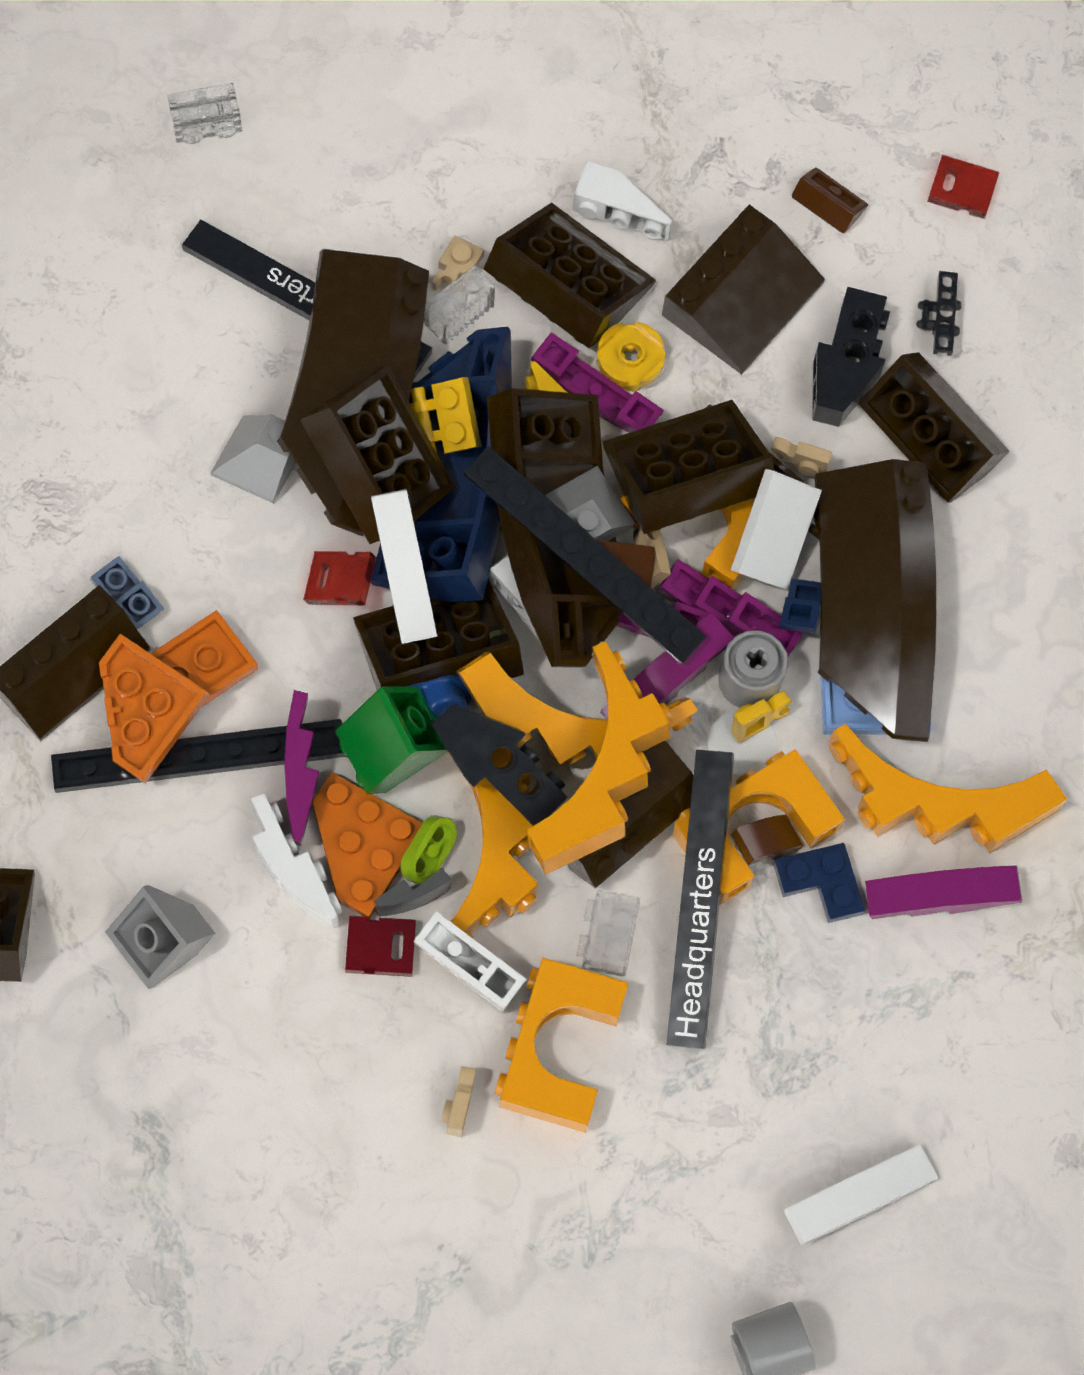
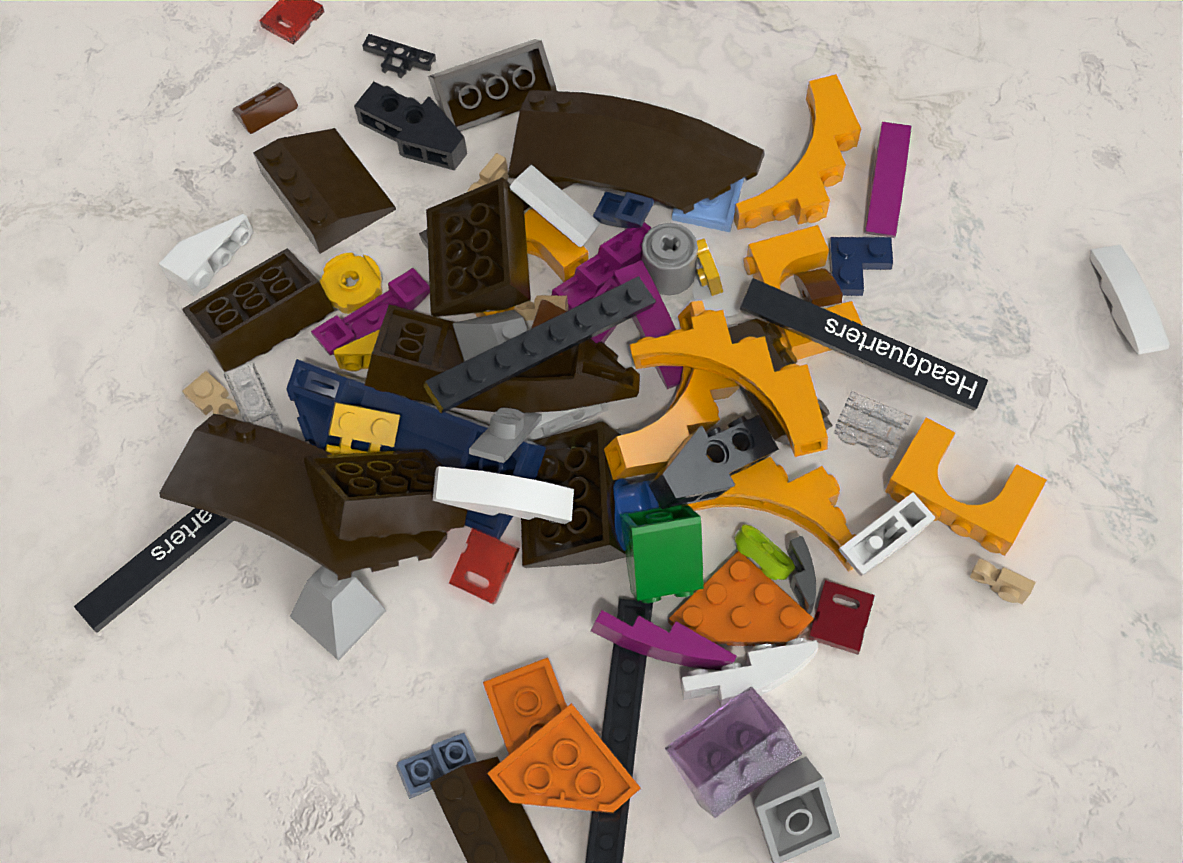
camera: 65 degrees left, 5 degrees down
(200, 859) = (733, 752): none -> clear purple slope
(469, 547) = (505, 434): none -> light grey piece

